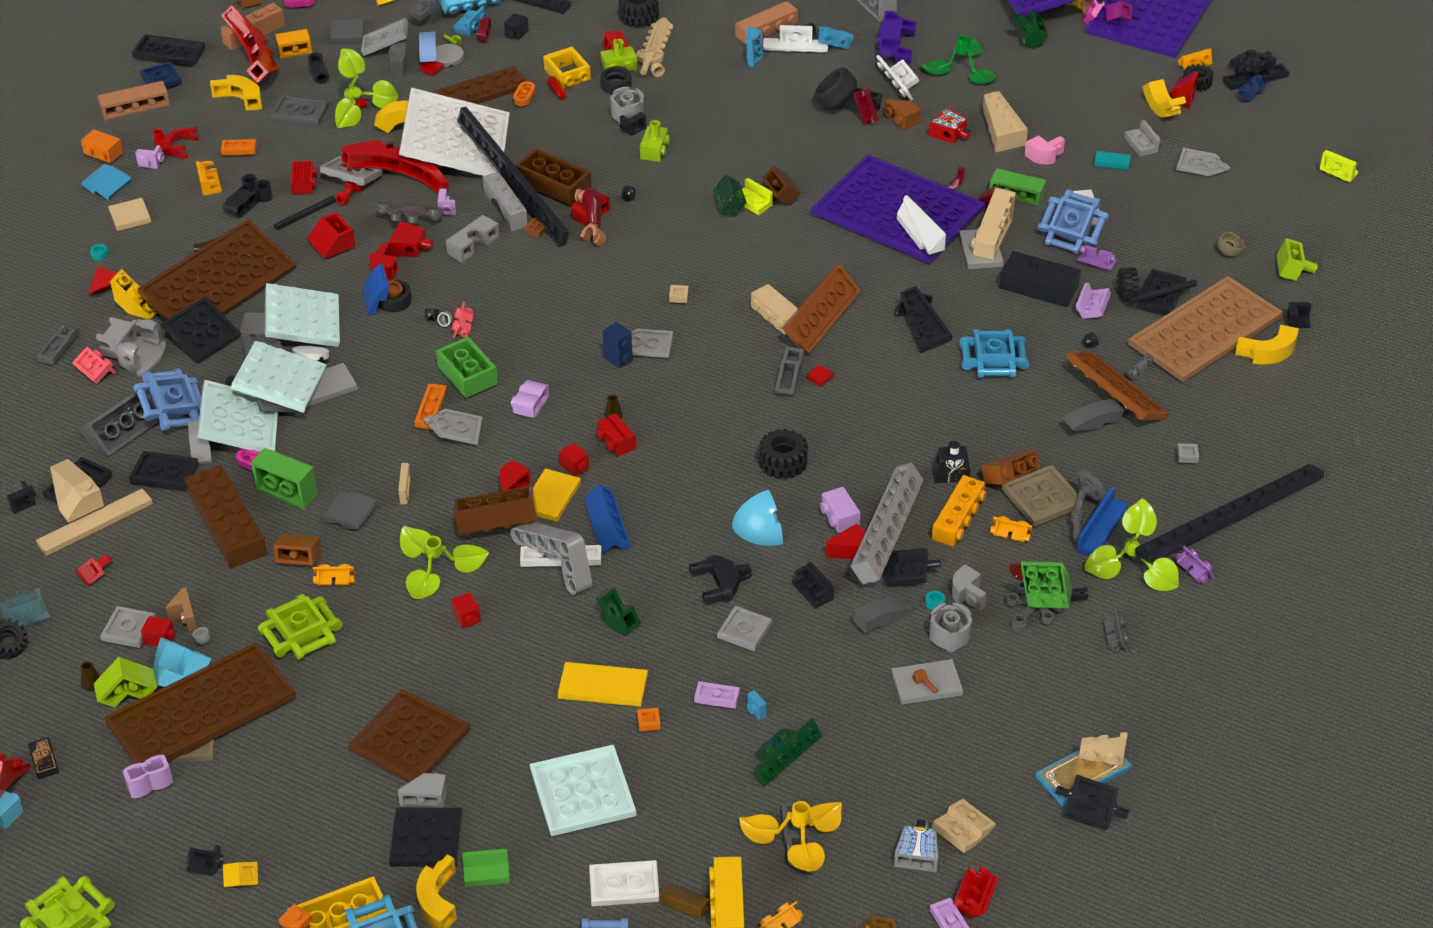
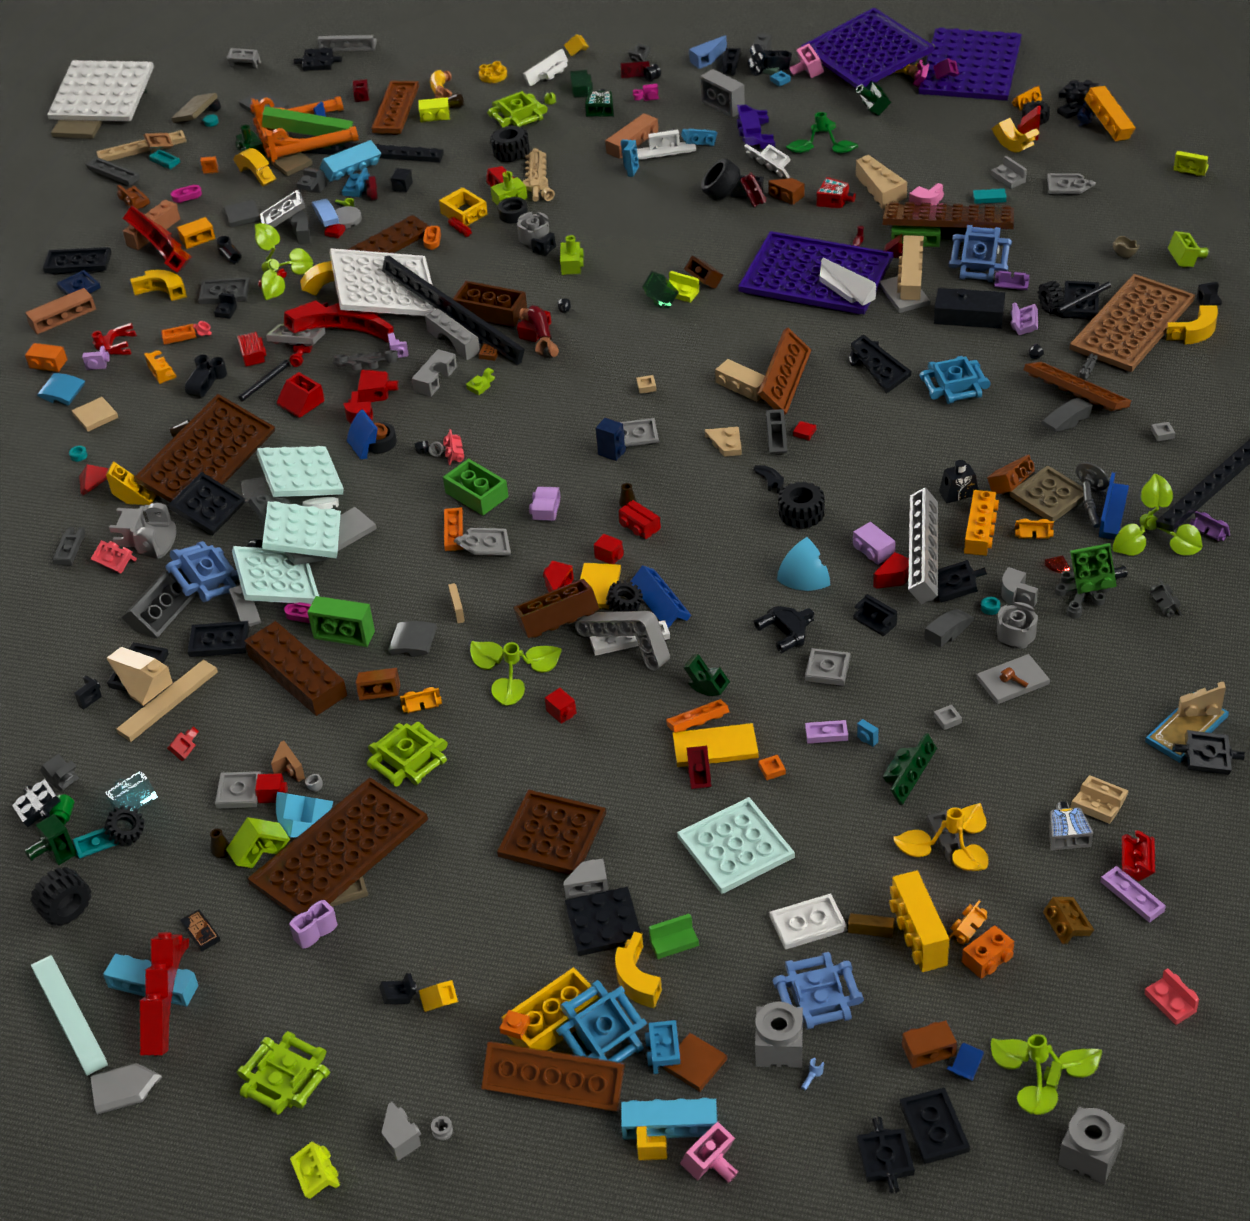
camera: 10 degrees left, 0 degrees up
(263, 146) = (202, 328): none -> coral plate
(296, 127) = (226, 306): none -> black bracket
(516, 259) = (481, 384): none -> lime plate
(573, 505) = (626, 590): none -> black tyre
(575, 703) = (698, 767): none -> dark red slope
(595, 651) = (697, 716): none -> orange plate
(737, 369) = (726, 440): none -> tan wing
(768, 417) = (773, 478): none -> black piece
(844, 707) = (947, 717): none -> light grey plate
(1057, 174) = (948, 216): none -> reddish brown plate
(1272, 93) = (1109, 113): none -> light orange brick

